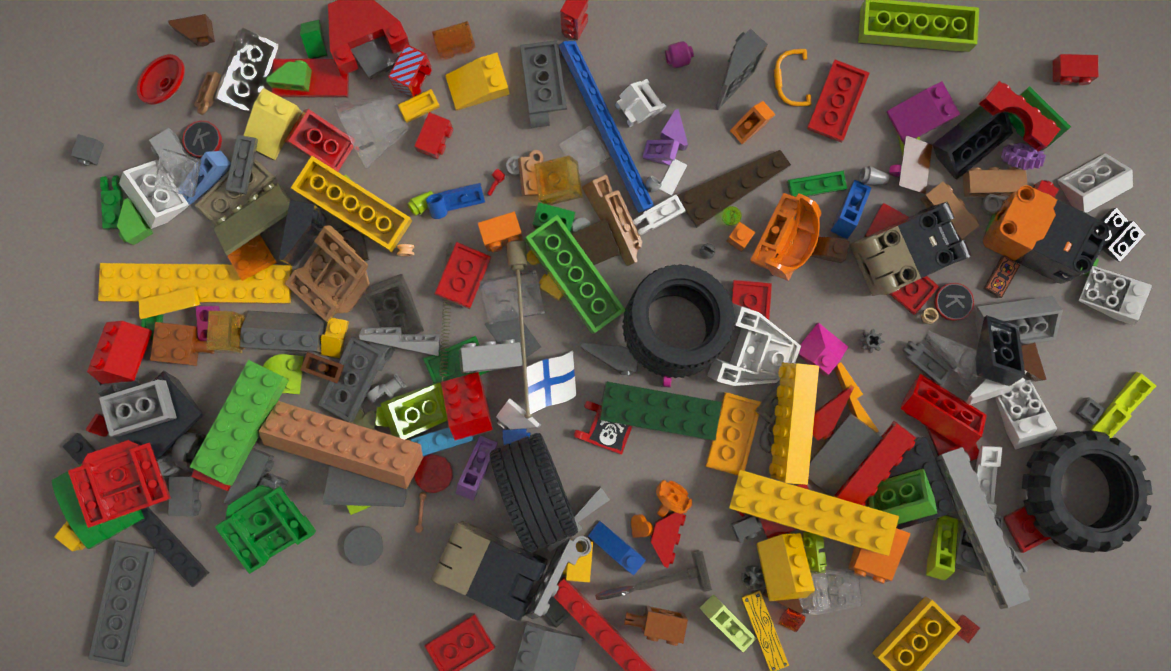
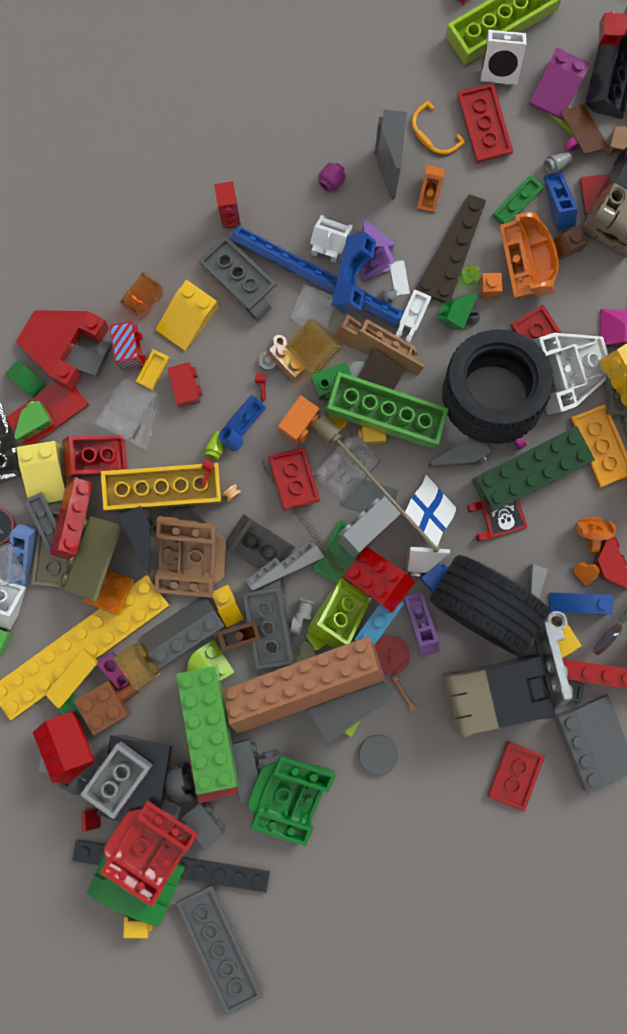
camera: 35 degrees left, 0 degrees up
(262, 176) = (71, 518): none -> red brick
(399, 215) = (208, 466): none -> red hand
(649, 130) = (357, 251): none -> blue arch
(696, 236) = (456, 311): none -> green slope
(891, 57) = (503, 57): none -> white brick

